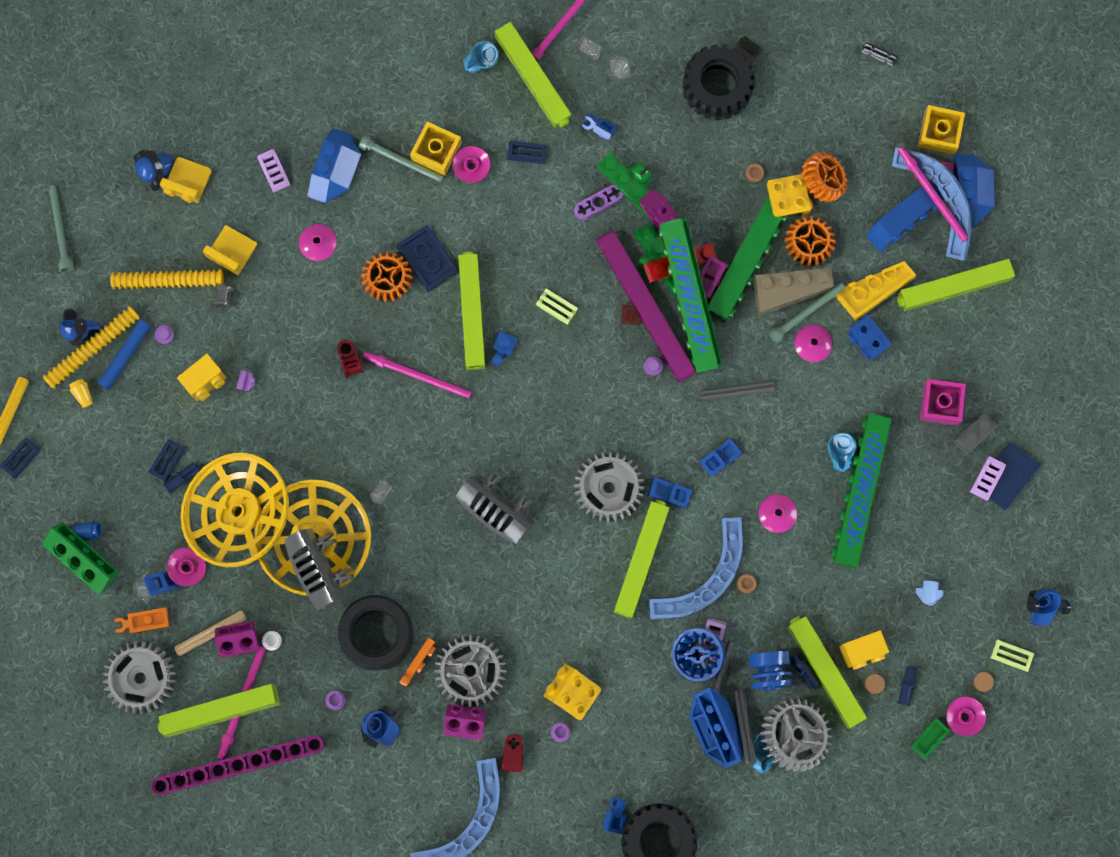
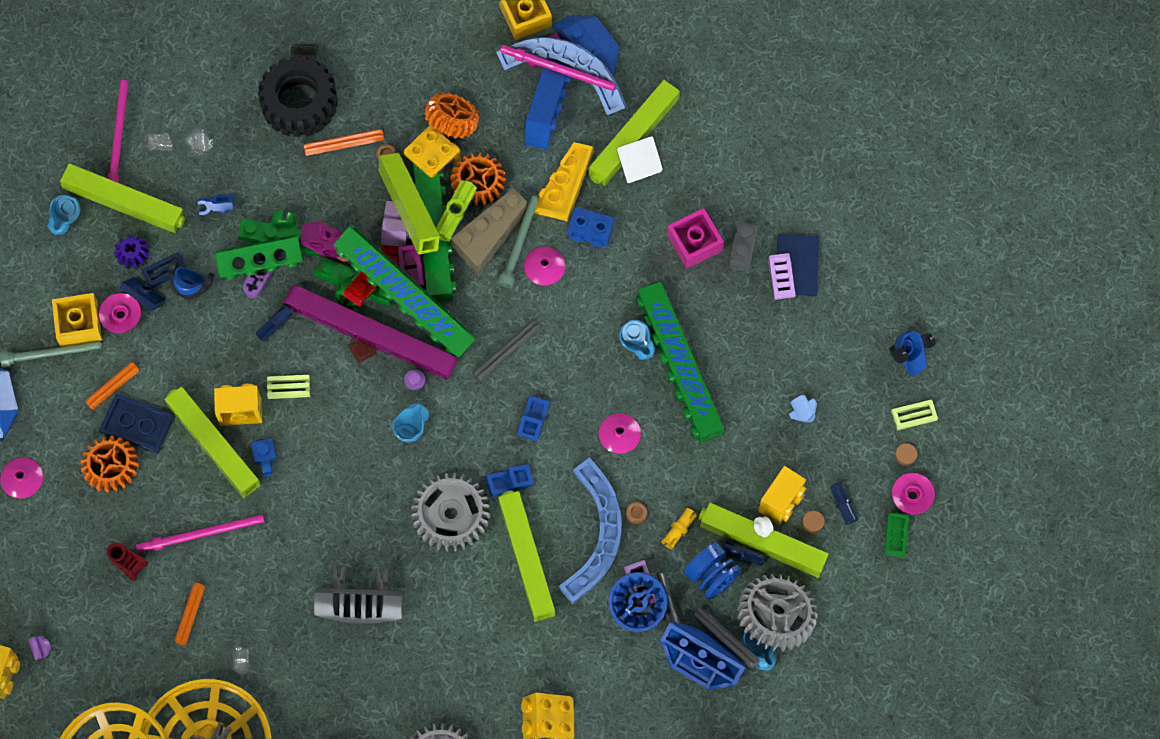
camera: 35 degrees left, 10 degrees down
(368, 430) = (189, 614): none -> orange axle
(430, 216) = (112, 385): none -> orange axle
(498, 160) = (142, 293): none -> dark blue plate
(505, 124) = (128, 258): none -> dark purple gear
(508, 296) = (238, 405): none -> yellow brick
(537, 174) = (187, 282): none -> cap
(579, 249) = (274, 323): none -> dark blue axle
(626, 397) = (410, 423): none -> dark azure hair
(630, 196) = (289, 244): none -> green brick
(721, 236) = (393, 229): none -> lavender brick
(729, 141) = (343, 142): none -> orange axle
(742, 226) = (408, 203): none -> lime brick
(769, 618) = (679, 528): none -> yellow pin
(783, 250) = (460, 200): none -> lime piece
(831, 663) = (763, 526): none -> white plate
(945, 310) = (640, 159): none -> white sticker

